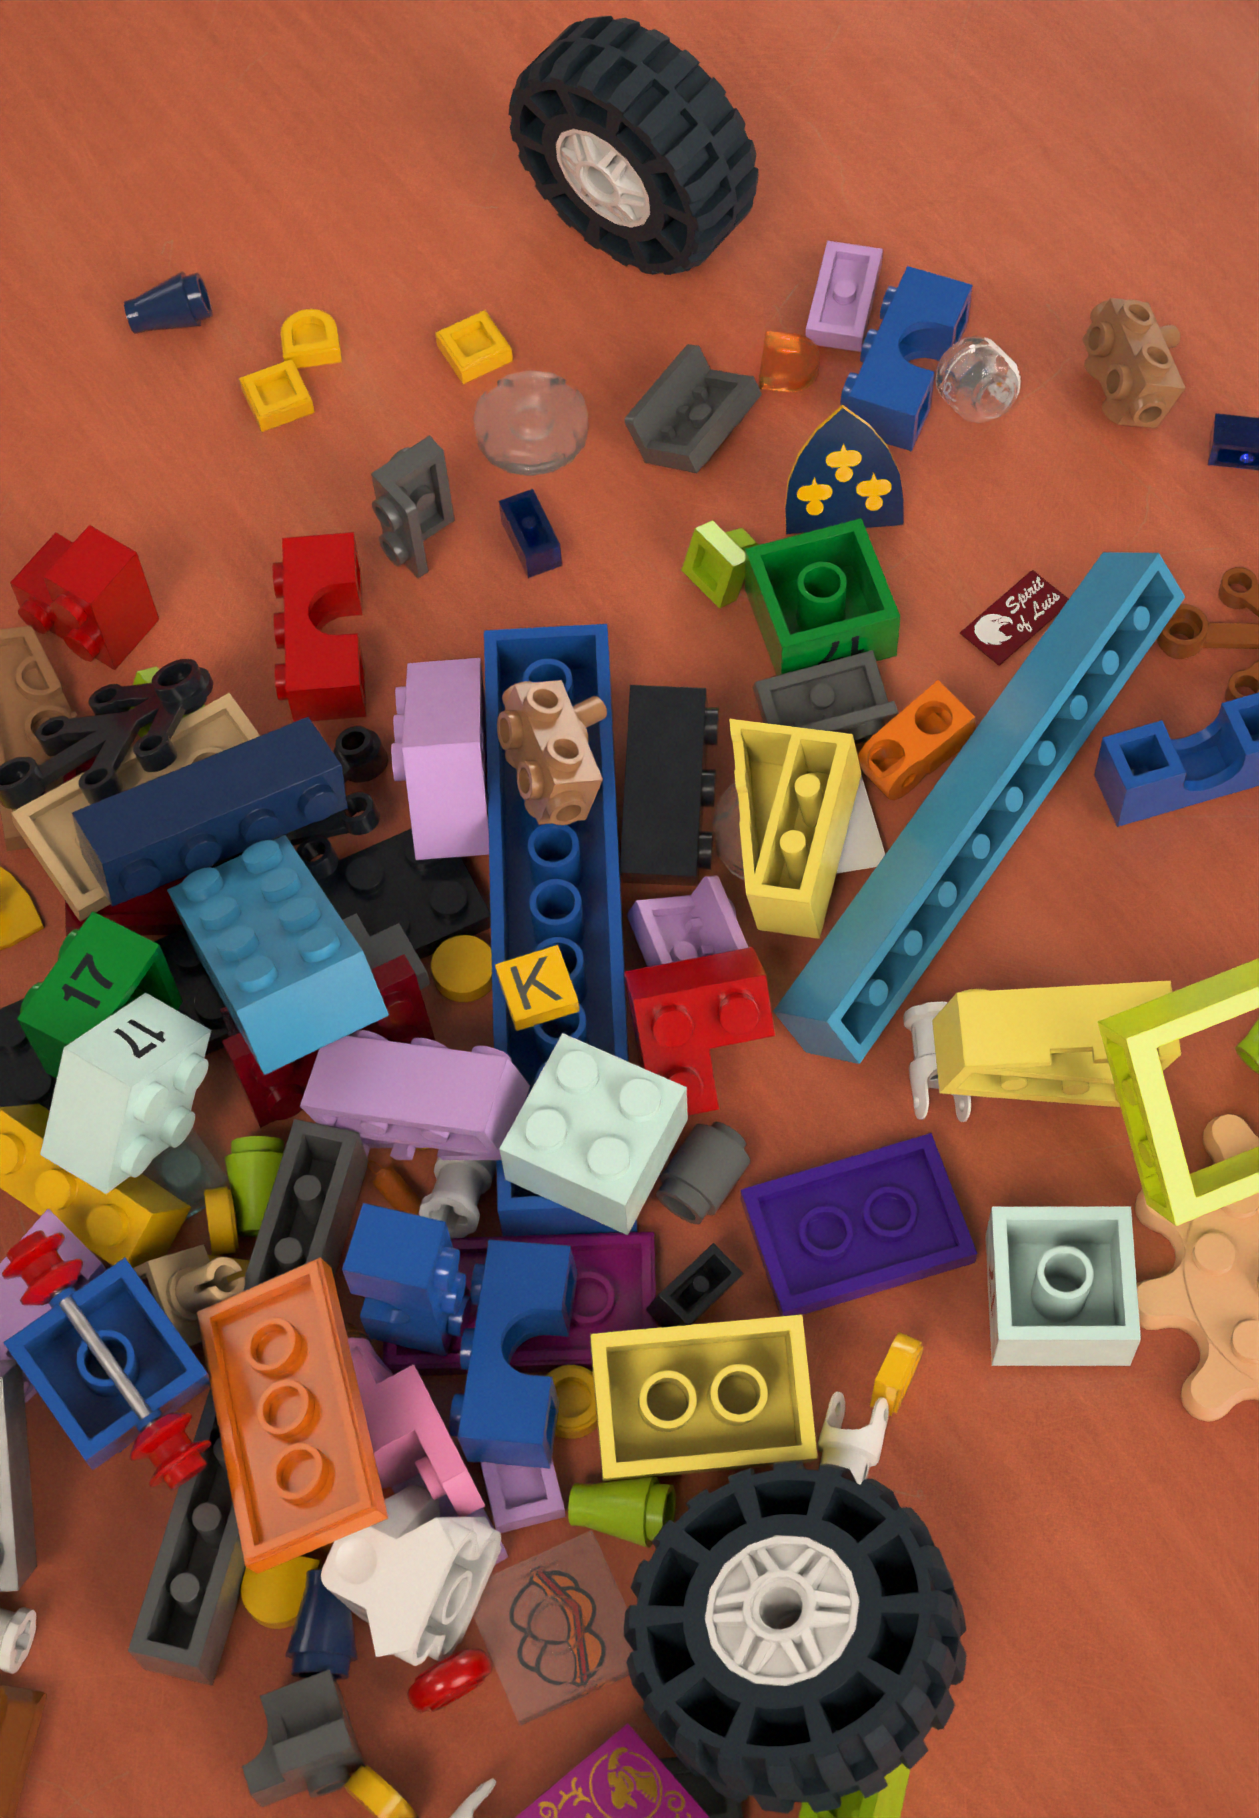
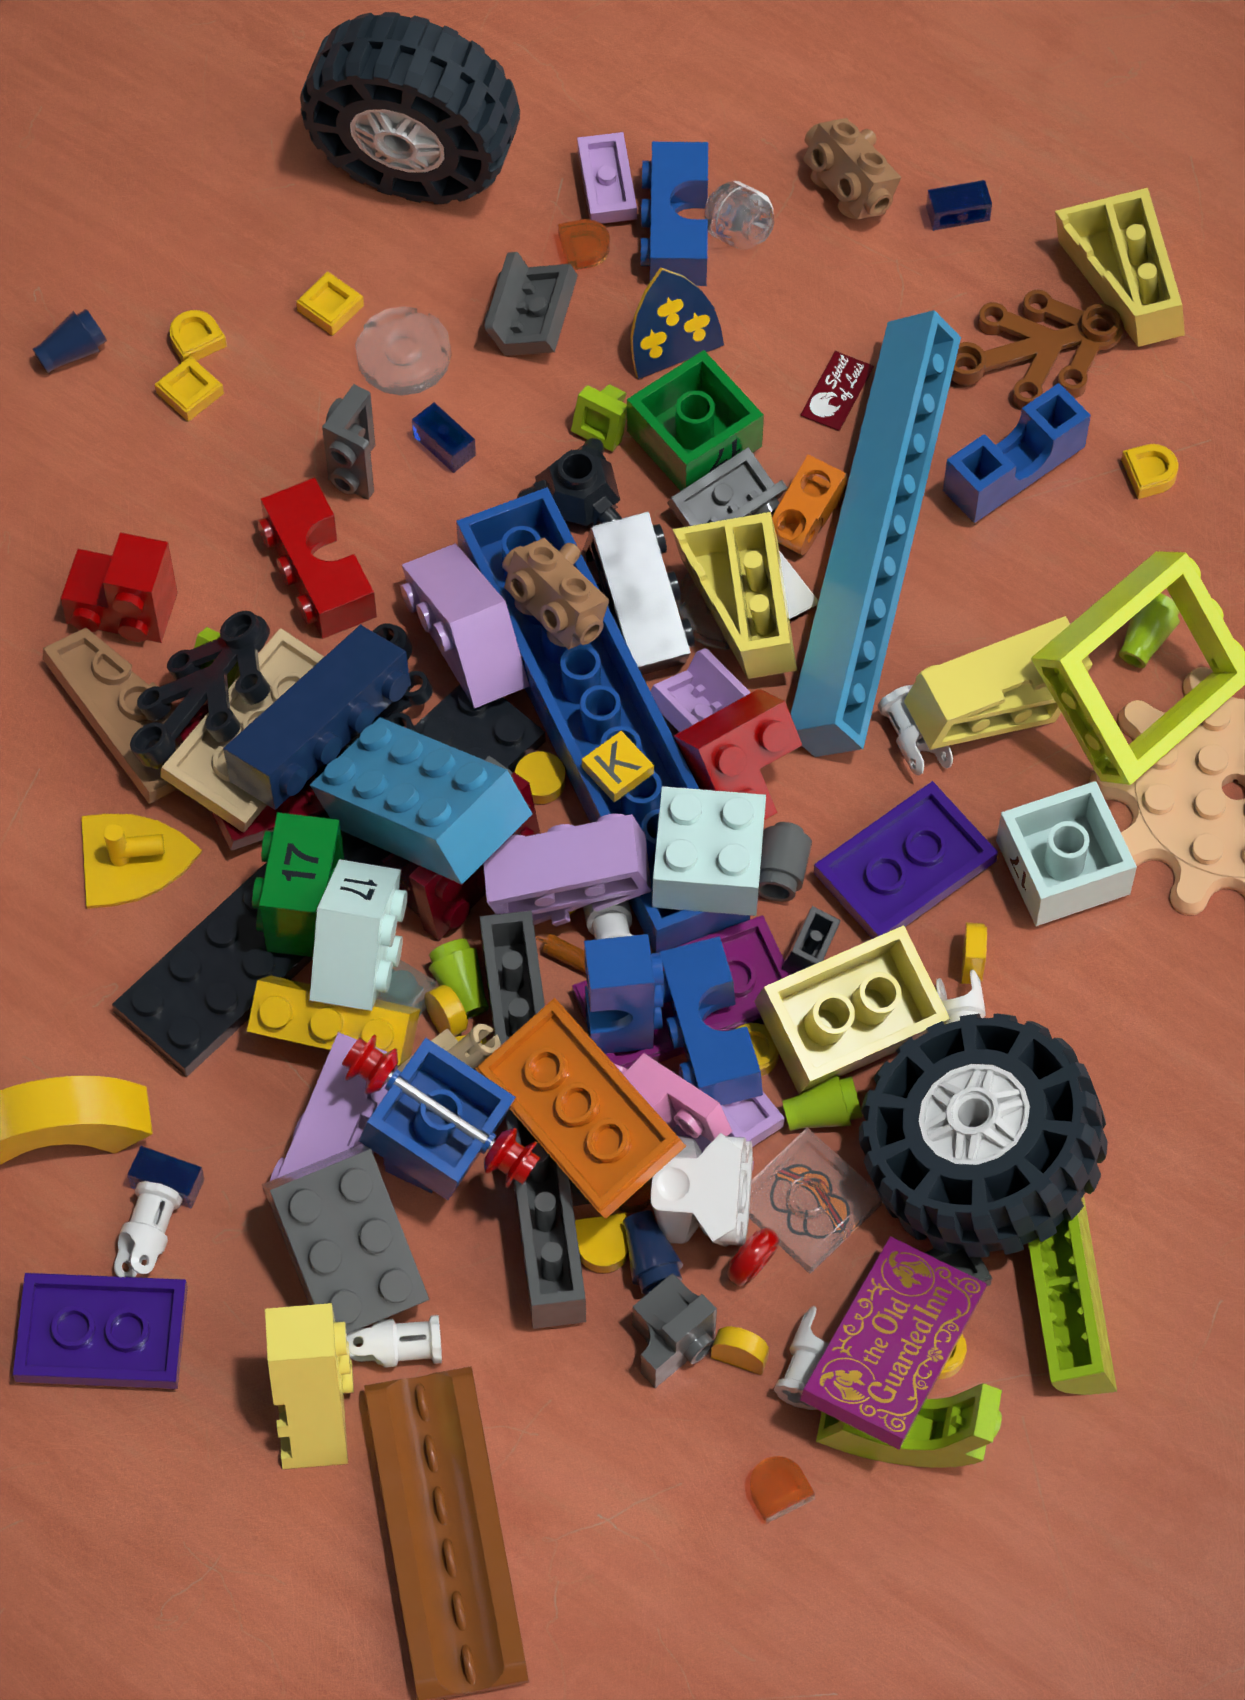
camera: 25 degrees left, 0 degrees up
(659, 635) = (581, 485): none -> black rock

